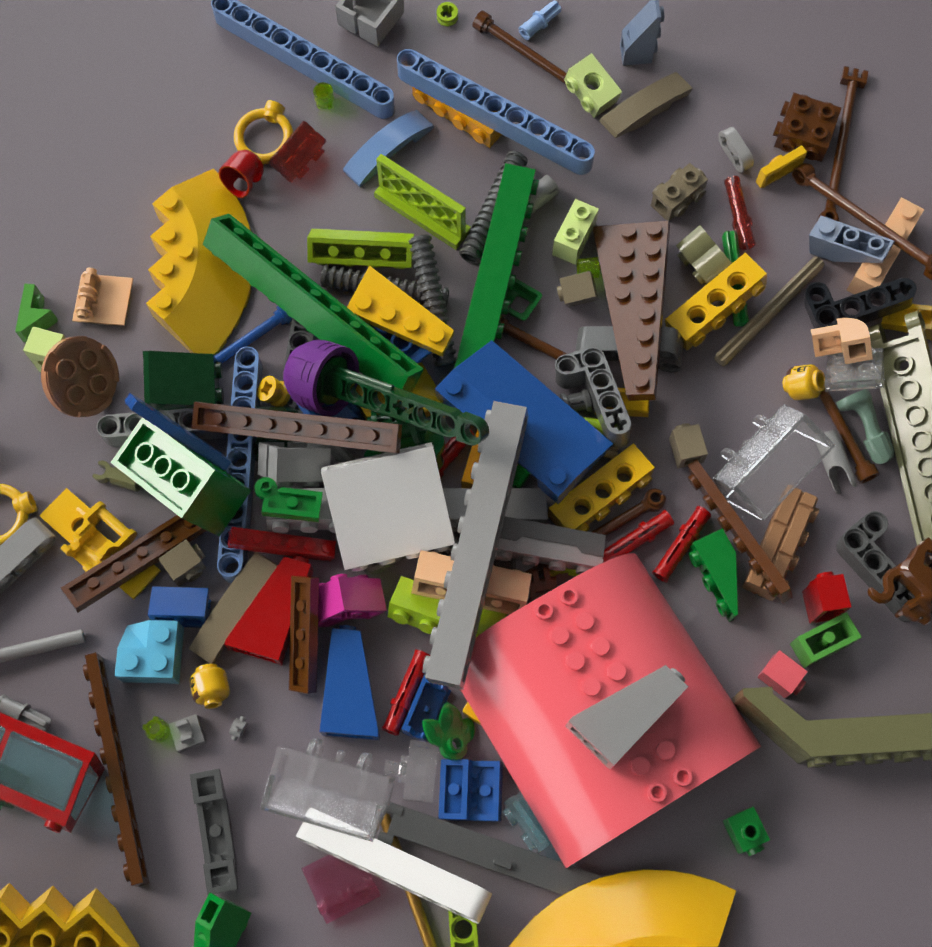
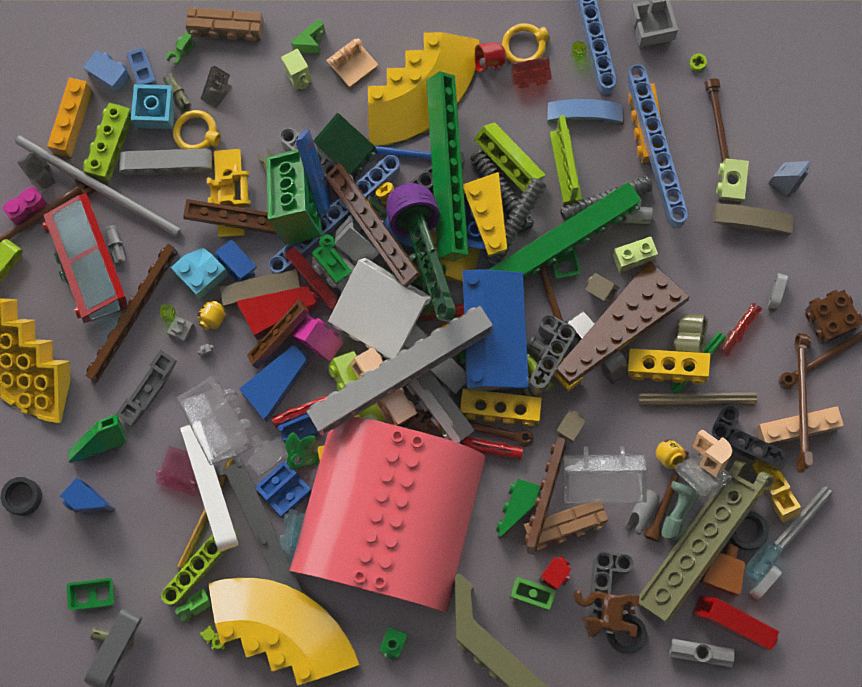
camera: 50 degrees right, 5 degrees up
(79, 376) = (298, 96): nougat tile -> none
(184, 562) = (258, 241): dark tan brick -> none
(539, 20) = (747, 113): light blue axle -> none
(588, 264) = (621, 280): clear neon green hose -> none
(622, 718) = (380, 525): light grey slope -> none
(678, 192) = (718, 286): dark tan brick -> none
(688, 534) = (512, 474): red pin -> none
(780, 166) = (792, 324): yellow plate -> none
(783, 675) = (494, 589): coral brick -> none
(847, 243) = (777, 402): sand blue slope -> none

